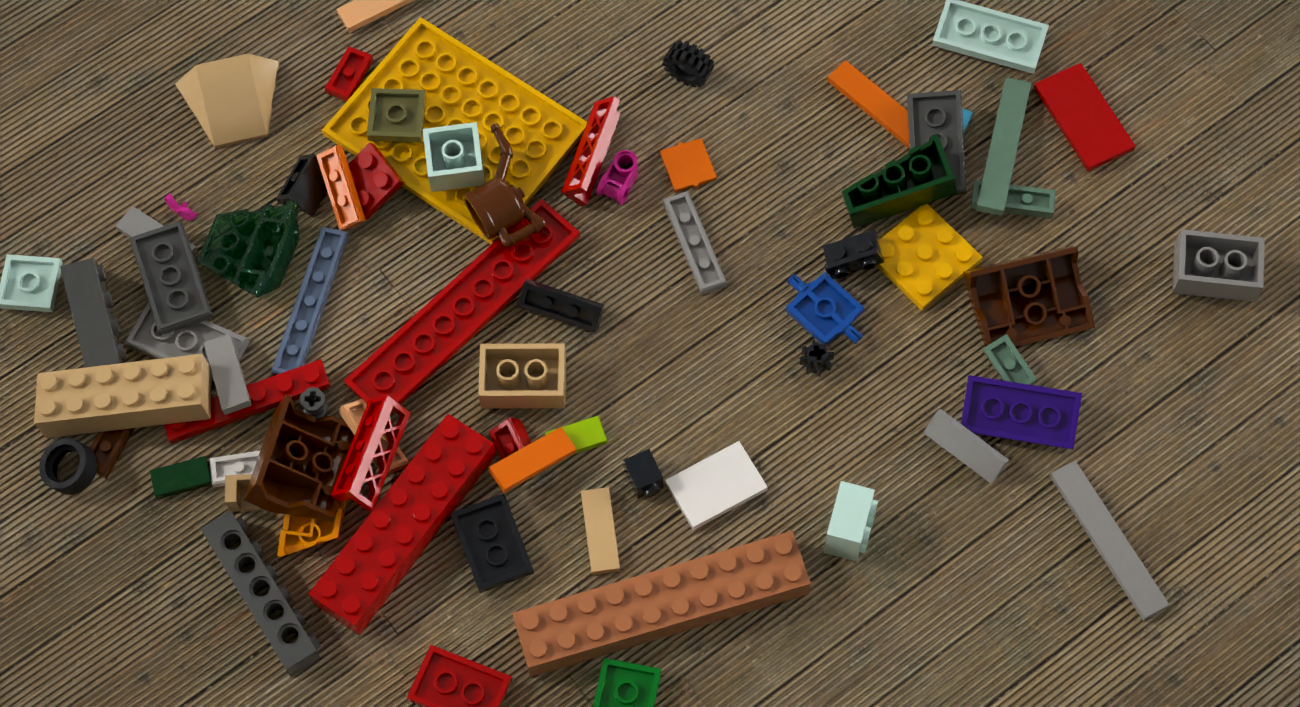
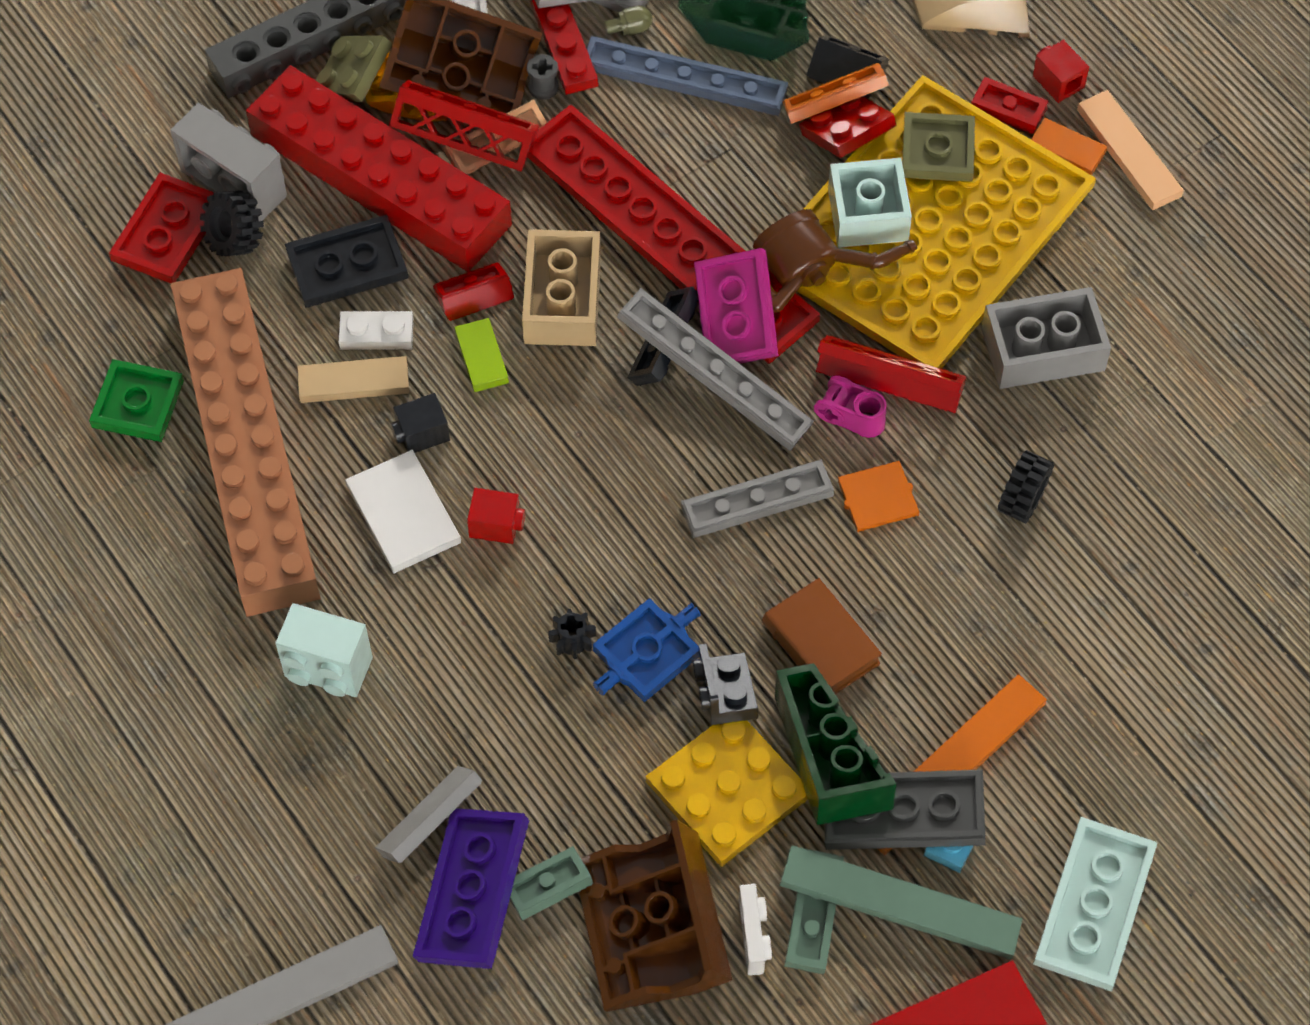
camera: 90 degrees right, 5 degrees down
(257, 342) = (630, 21): none -> olive cylinder
(307, 546) = (354, 65): none -> olive plate
(319, 38) = (1060, 70): none -> red brick
(386, 36) = (1070, 145): none -> orange tile
(404, 635) = (228, 158): none -> light grey brick
(473, 638) = (243, 233): none -> black tyre
(532, 459) = (445, 296): orange tile -> none
(543, 250) = (737, 305): none -> dark pink tile
(554, 517) = (376, 330): none -> white plate
(563, 50) = (1045, 337): none -> light grey brick
(593, 267) = (715, 369): none -> light grey tile
(721, 416) = (495, 516): none -> red brick
(807, 197) = (820, 631): none -> dark orange piece
(1029, 236) = (752, 914): none -> white plate

